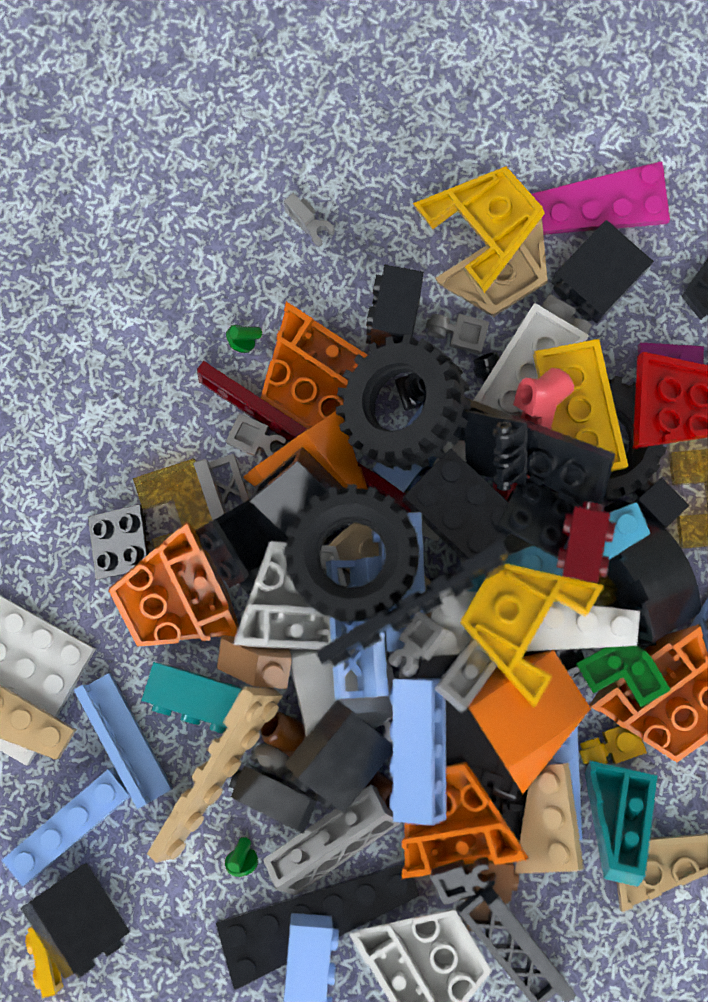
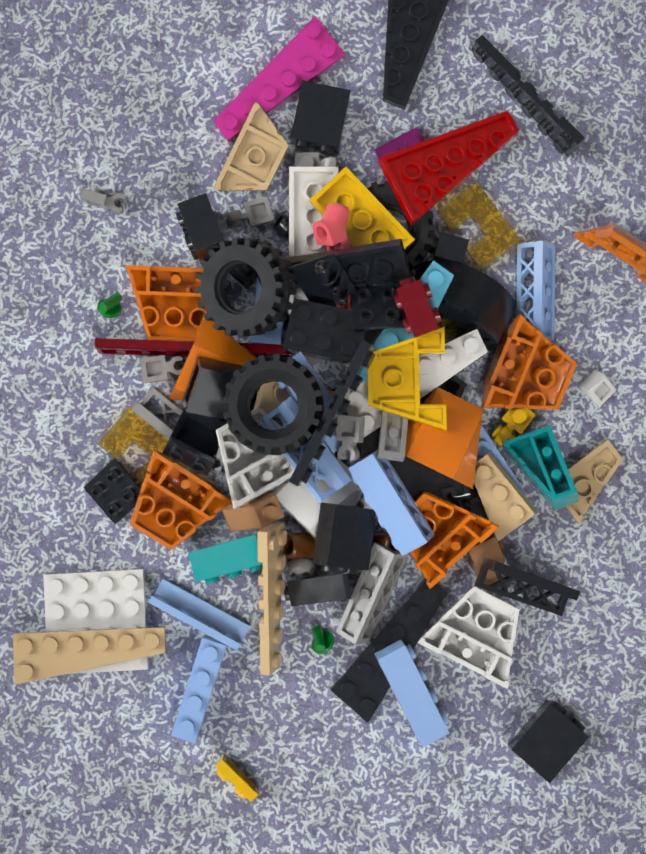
camera: 40 degrees left, 5 degrees up
(76, 922) = (242, 743): black brick -> none
(459, 882) = (466, 568): plate -> none
(496, 210) = (227, 118): yellow wing -> none
(627, 662) = (487, 366): green plate -> none

